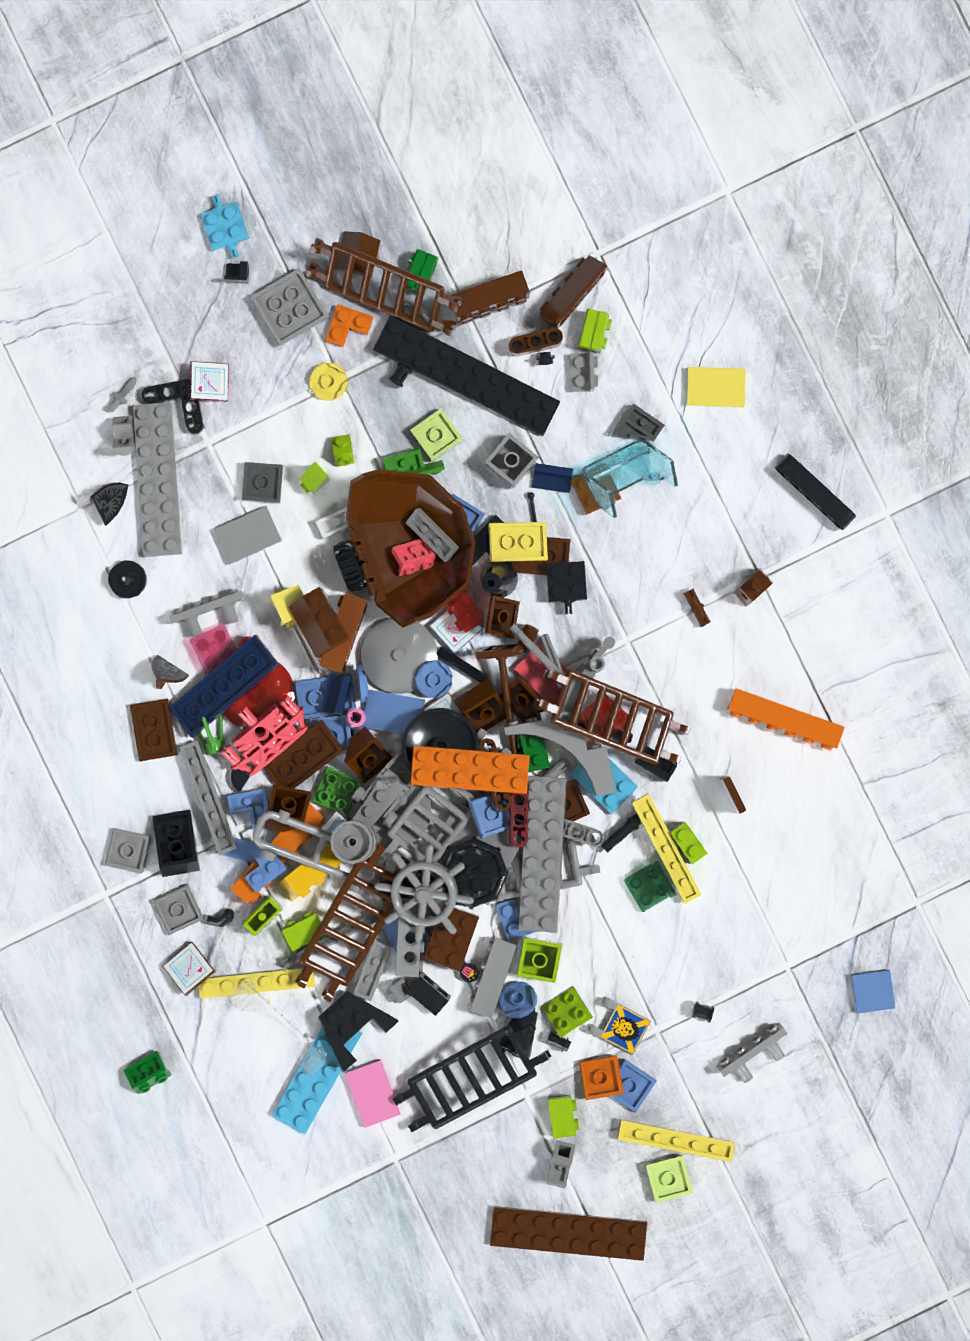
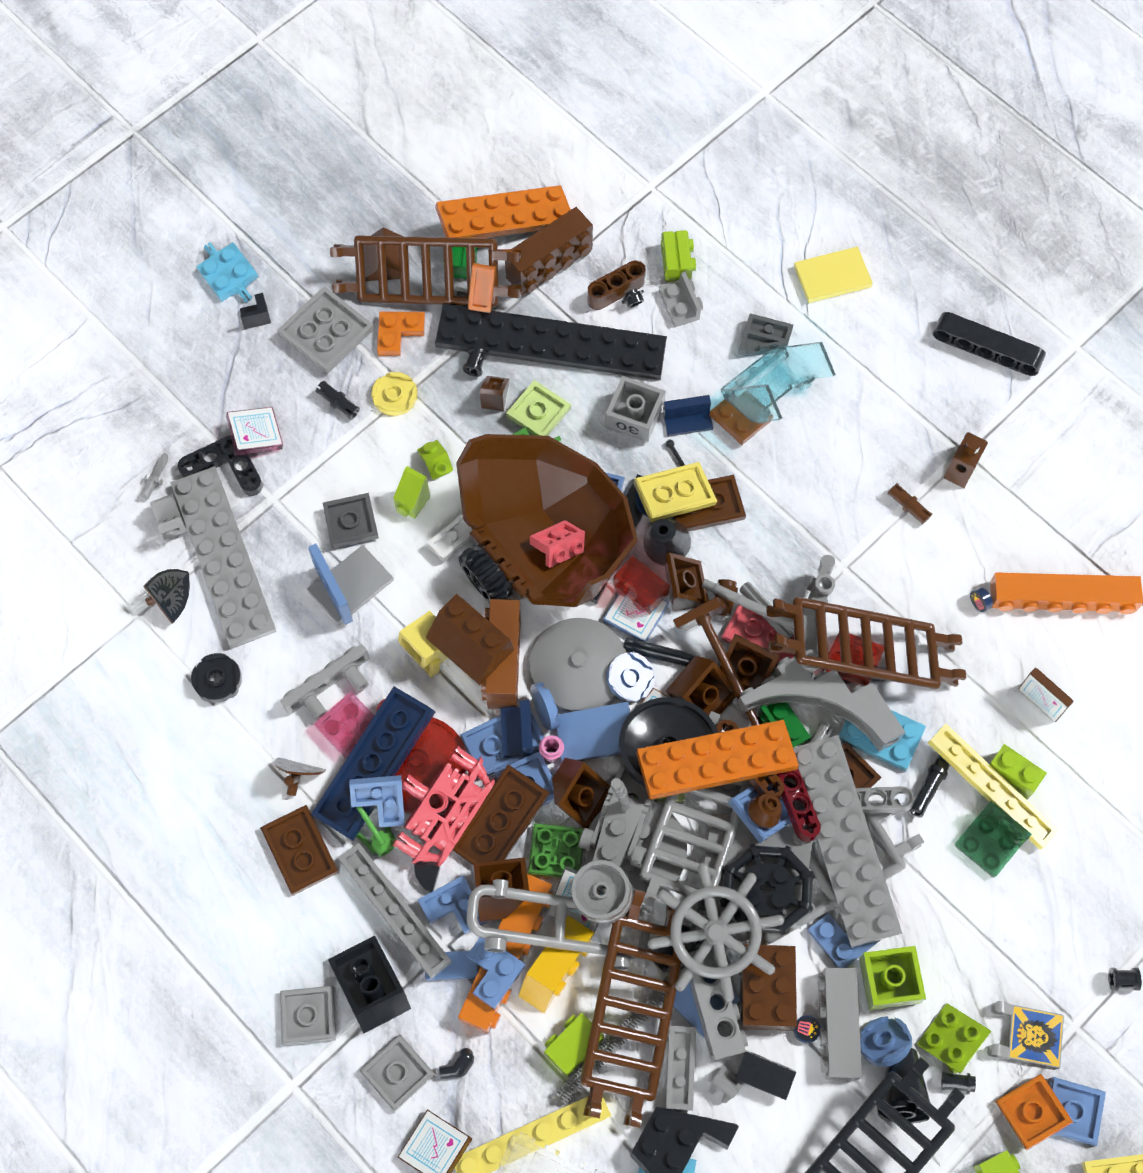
camera: 20 degrees left, 20 degrees down
(223, 715) = (383, 792): none -> medium blue plate
(230, 536) = (330, 584): none -> medium blue tile
(262, 916) = (512, 1040): lime brick -> none
(281, 374) = (337, 400): none -> black pin
(407, 406) = (494, 393): none -> reddish brown slope
(423, 318) = (481, 287): none -> orange tile
(432, 534) = (572, 511): light grey plate -> none
(465, 248) = (502, 213): none -> orange plate
(490, 818) = (765, 810): none -> reddish brown cone
(566, 583) = (748, 522): black plate -> none
(573, 292) = (640, 221): reddish brown slope -> none
(662, 770) = (944, 698): black hinge -> none
(719, 703) = (981, 599): none -> dark blue tile

